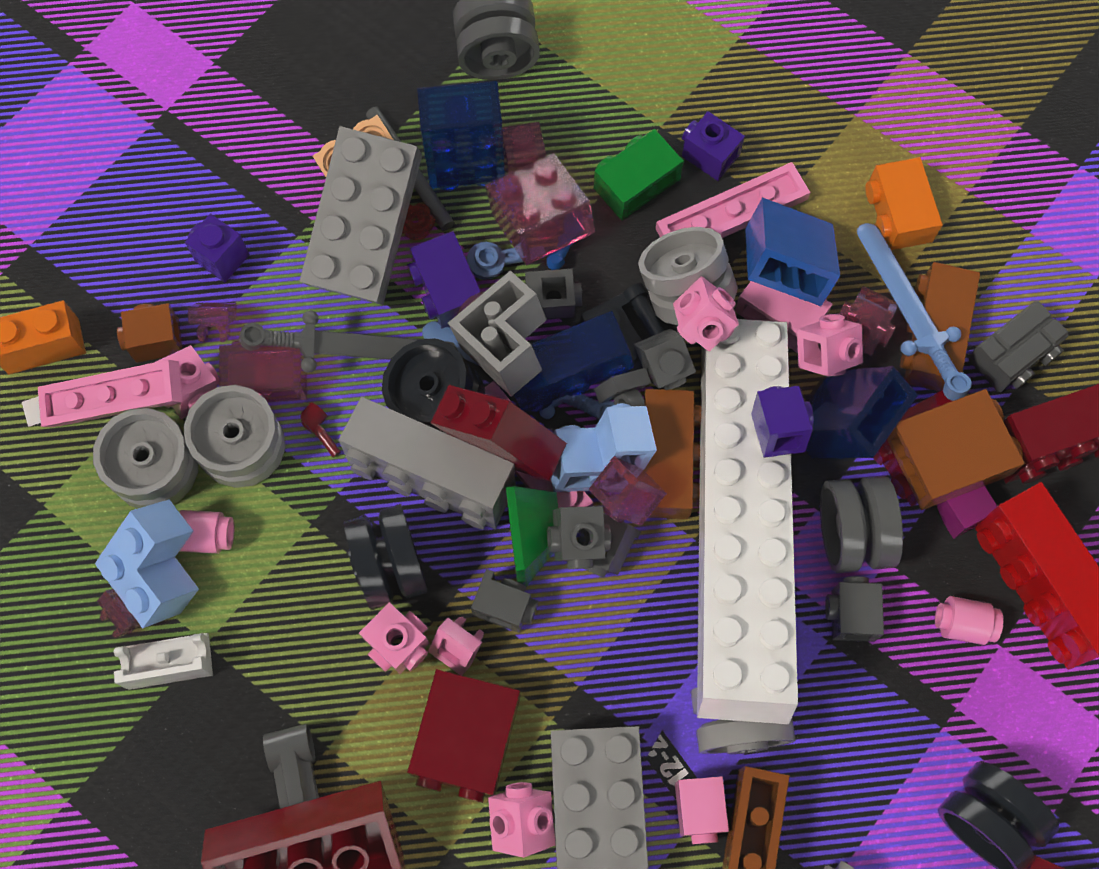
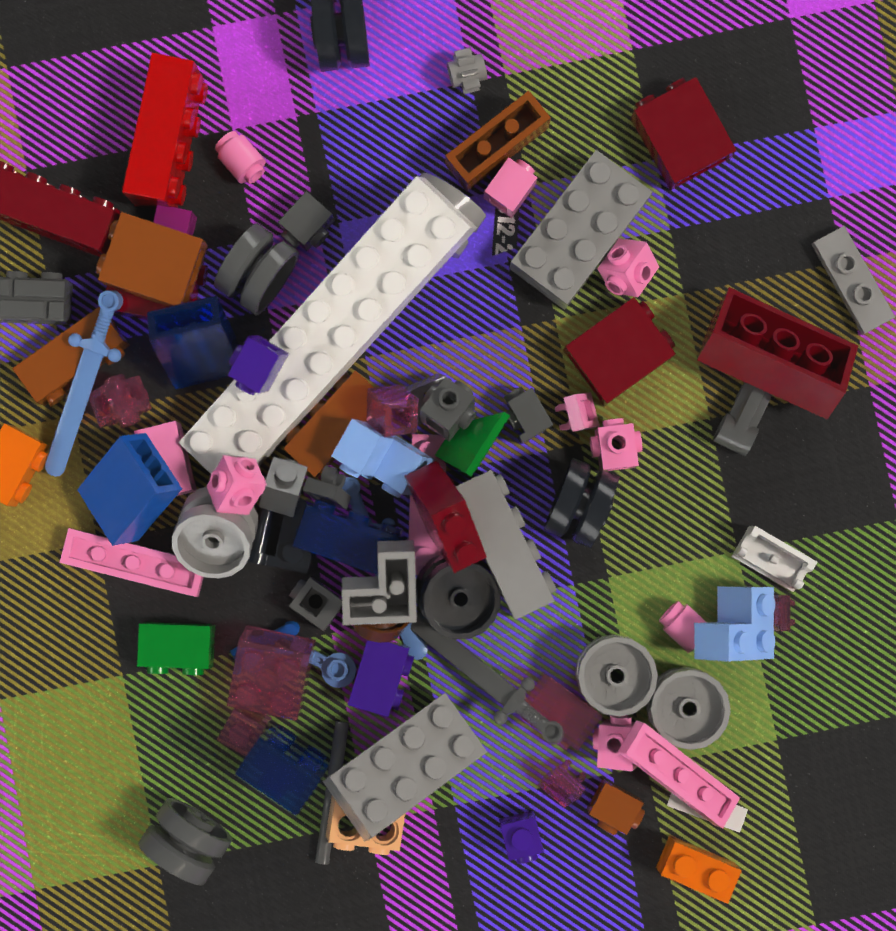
camera: 135 degrees left, 15 degrees up
(311, 419) = (552, 650): dark red hand -> none
(423, 227) = (356, 736): clear red plate -> none
(712, 145) = (103, 624): dark purple brick -> none
(830, 345) = (167, 399): bright pink brick -> none

